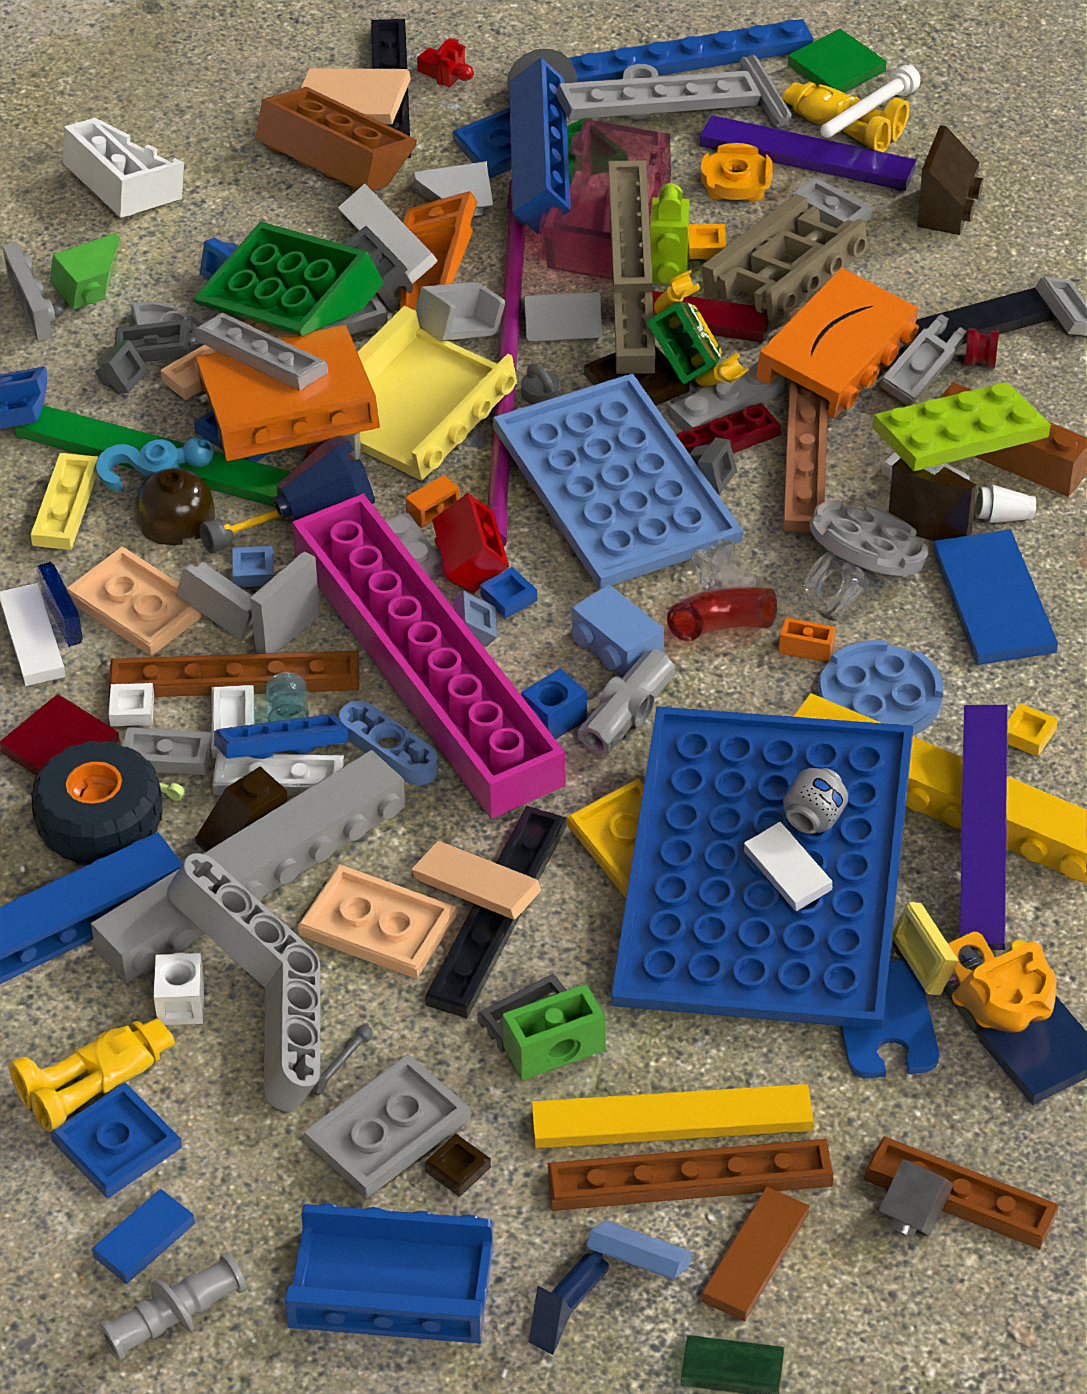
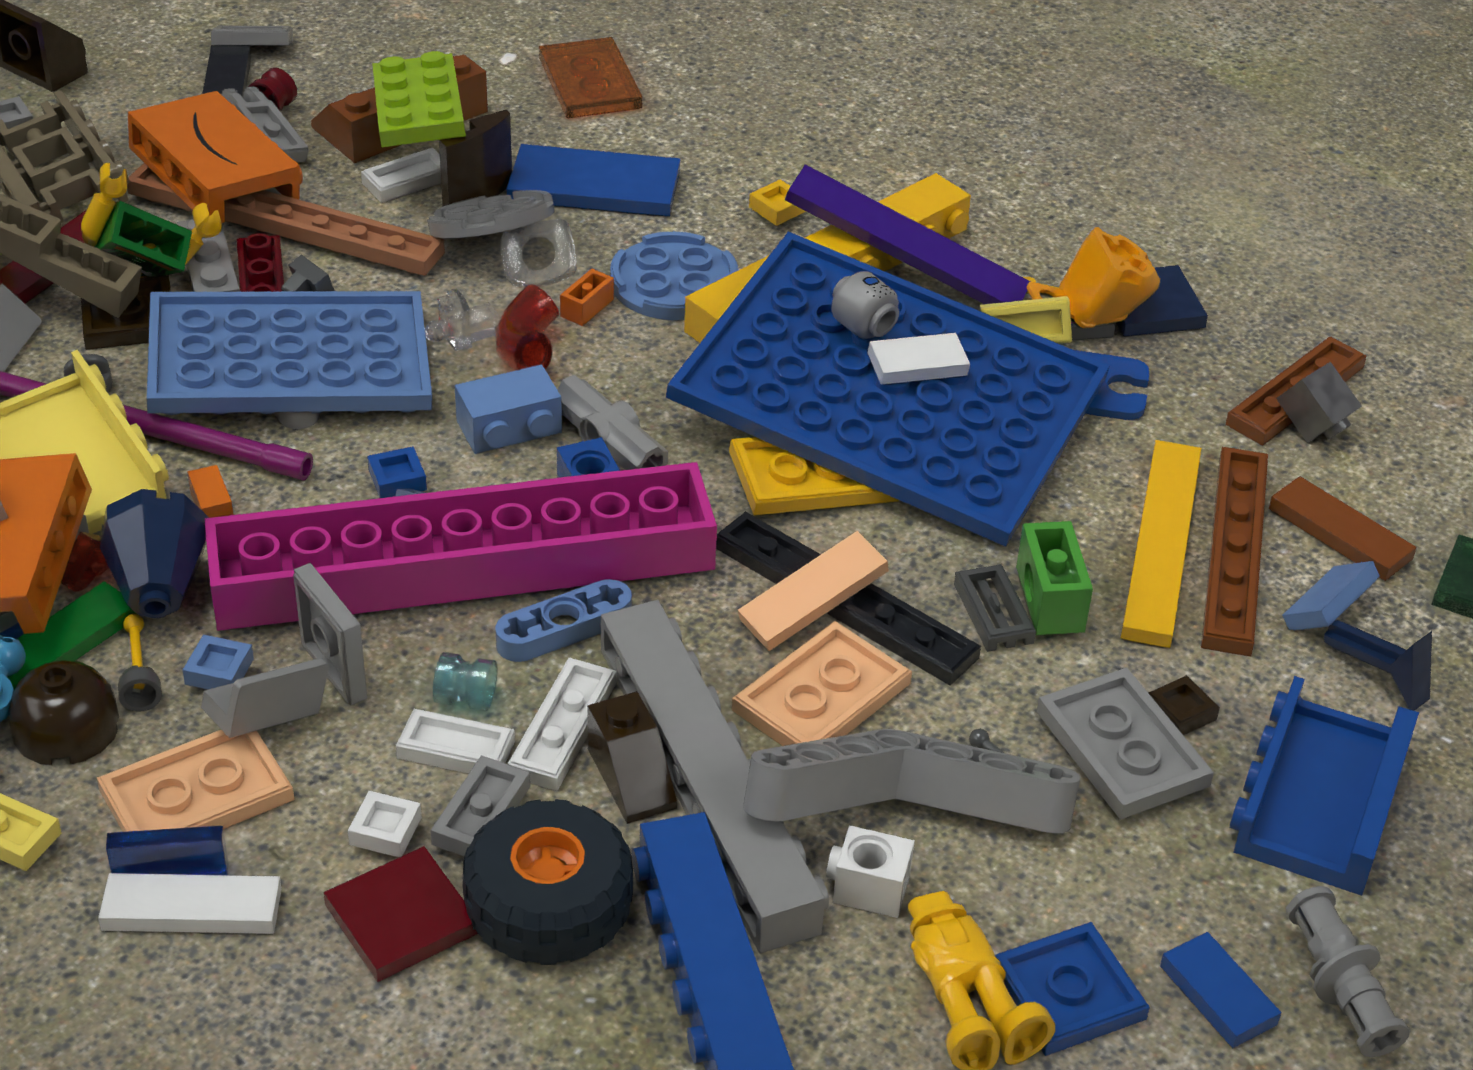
camera: 75 degrees left, 5 degrees down
(198, 674) = (374, 730): dark orange tile -> none
(296, 735) = (524, 695): blue plate -> none
(469, 543) = (313, 472): red brick -> none

